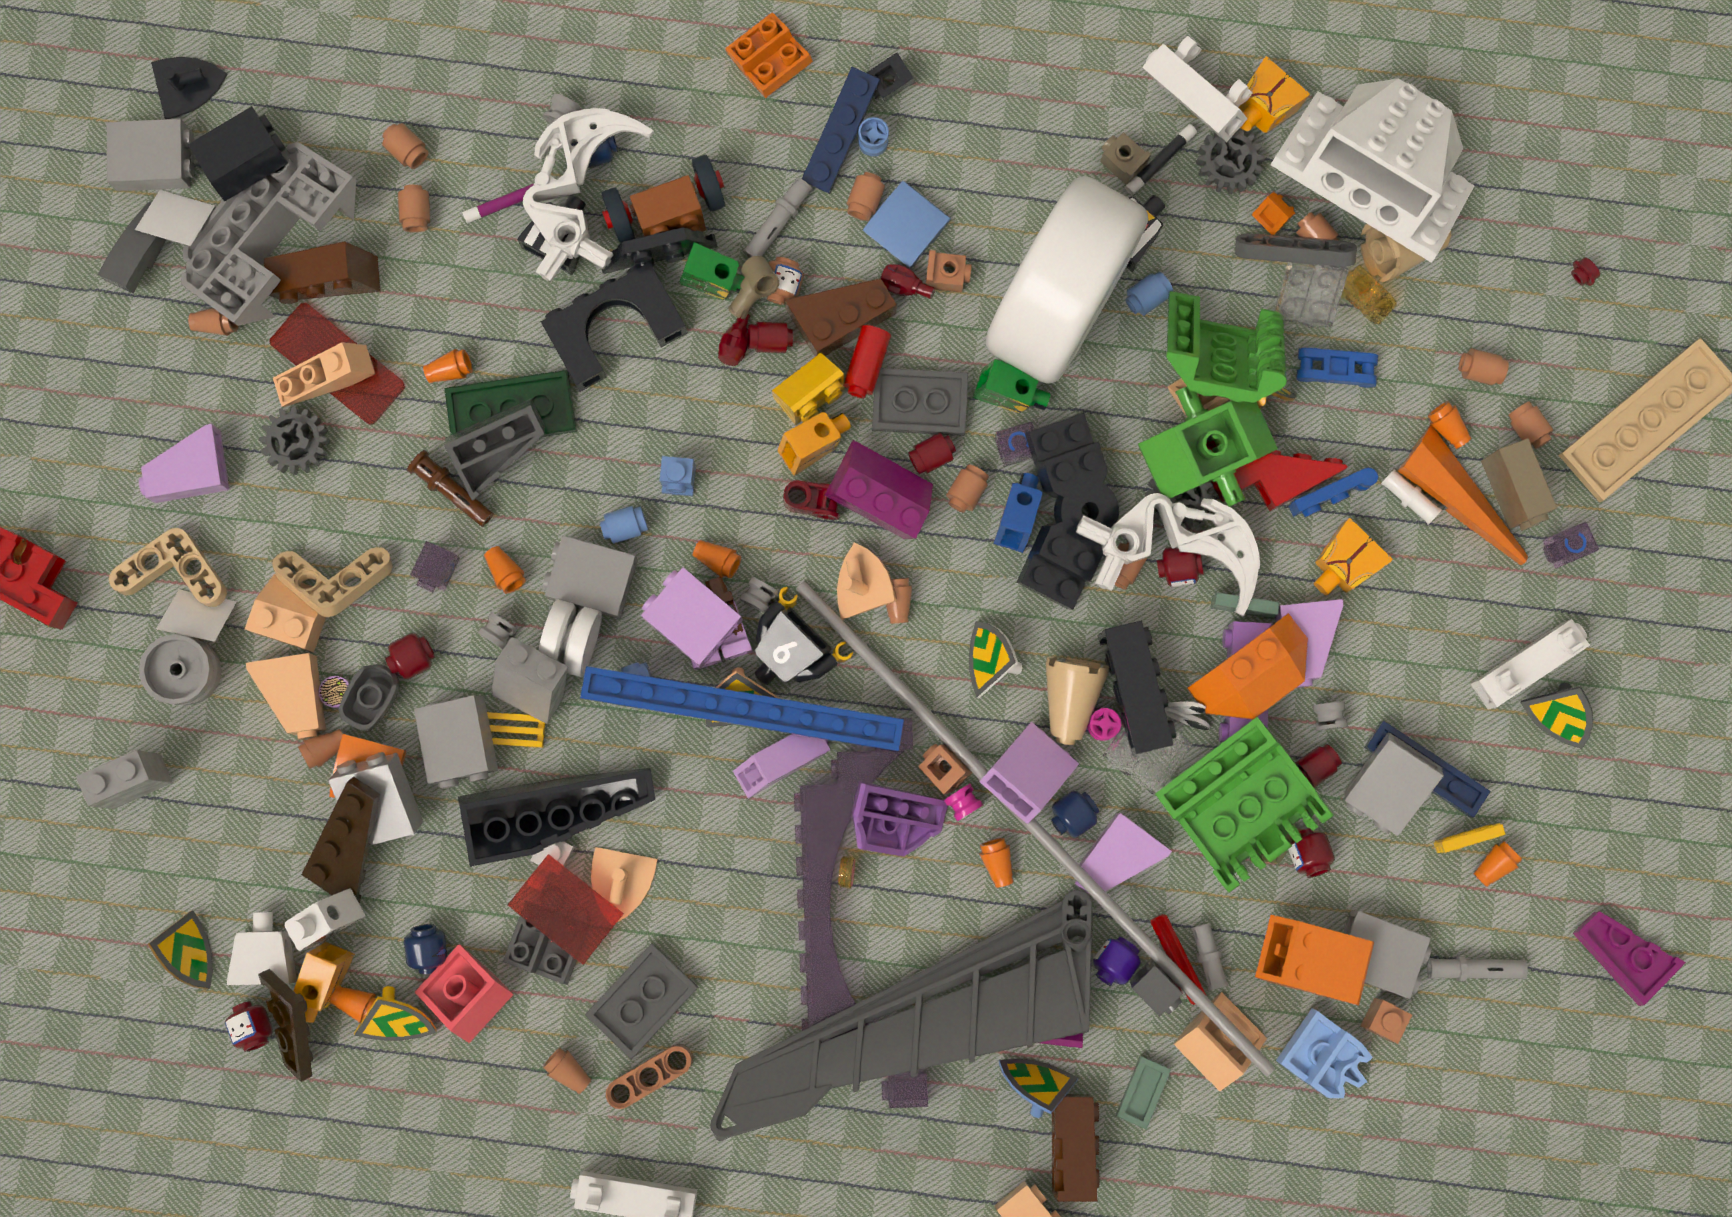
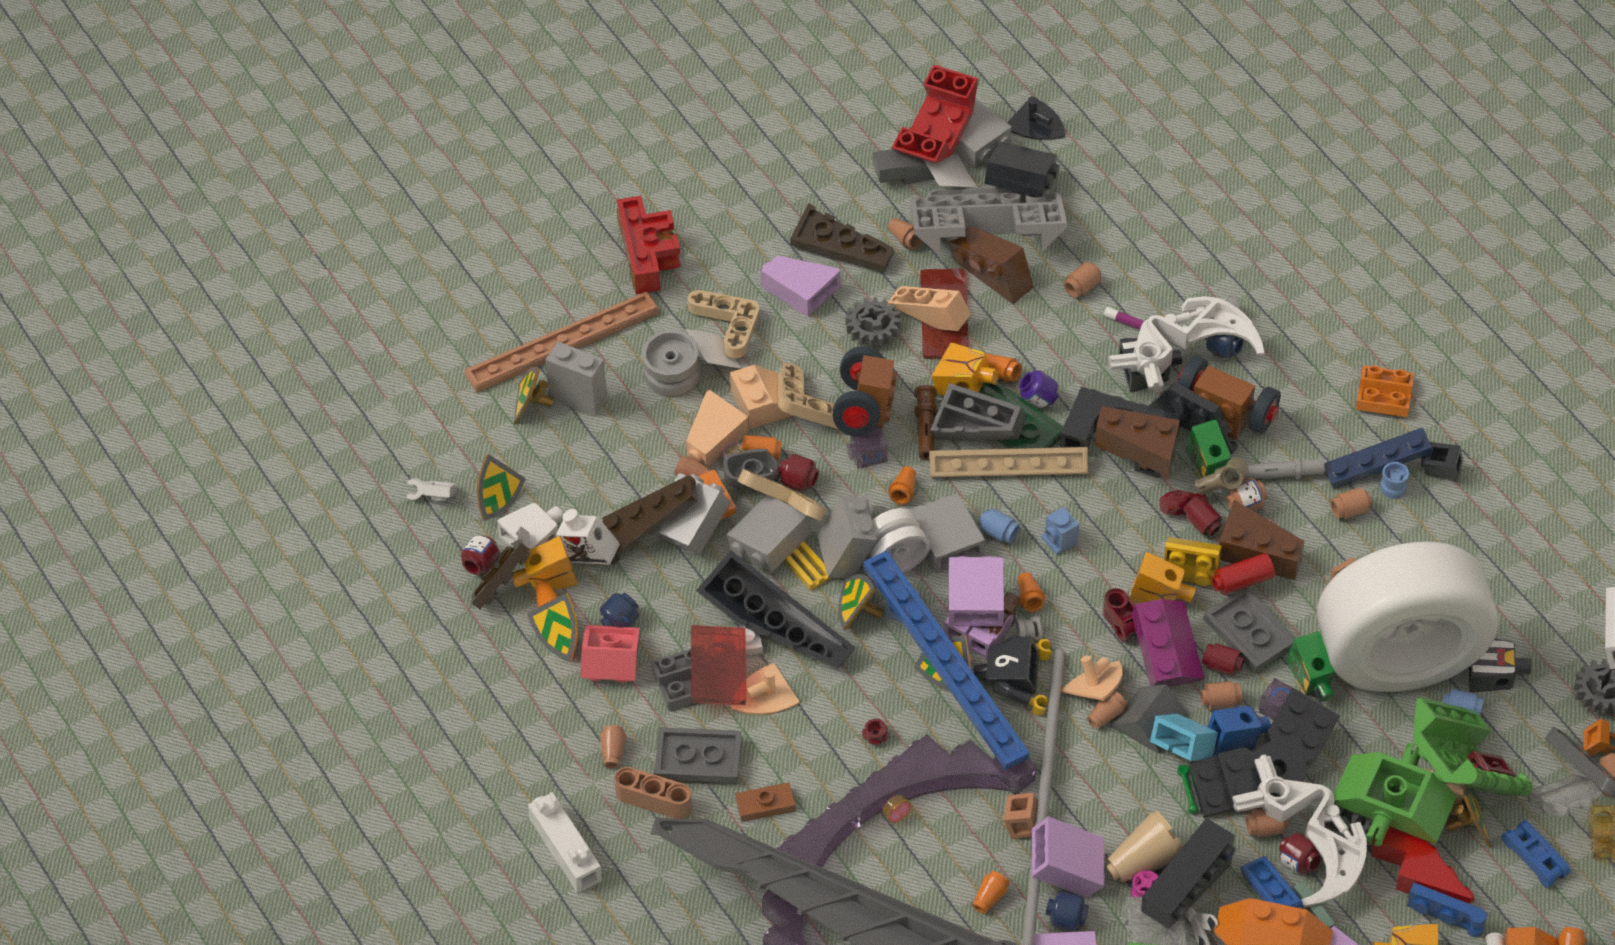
camera: 55 degrees right, 30 degrees down
(57, 746) = (575, 335): none -> nougat tile
(96, 832) = (528, 392): none -> shield
(115, 181) = (941, 116): none -> red slope
(132, 1008) = (437, 490): none -> white plate
(156, 394) = (828, 237): none -> dark brown wing
(350, 662) = (760, 442): none -> orange cone
(386, 518) = (875, 381): none -> brick
(404, 145) = (1116, 248): nougat brick -> none
(427, 410) = (963, 368): none -> light orange torso
(433, 684) = (795, 499): none -> tan beam
(506, 359) = (1038, 389): none -> dark purple head
(560, 454) = (1008, 462): none -> tan tile
(596, 723) = (856, 596): none -> shield
(652, 325) = (1139, 437): none -> reddish brown wedge
(738, 979) = (765, 802): none -> dark orange plate
(749, 812) = (873, 726): none -> dark red plate
(778, 762) = (934, 714): lavender slope -> none
(895, 819) = (958, 798): medium lavender wedge -> none
(904, 282) = (1318, 563): dark red piece -> none
(906, 224) = (1356, 536): medium blue slope -> none
(934, 567) = (1141, 711): none -> dark grey slope
(963, 802) = (1010, 842): dark pink wheel -> none
(980, 560) = (1183, 737): none -> medium azure piece
(990, 657) = (1126, 789): shield -> none
(1009, 586) = (1183, 772): none -> green hinge
(1124, 167) = (1535, 624): dark tan brick -> none
(1161, 159) = (1559, 651): black bar -> none
(1197, 621) = (1269, 883): none -> blue tile
(1233, 339) = (1490, 763): none -> dark red tile

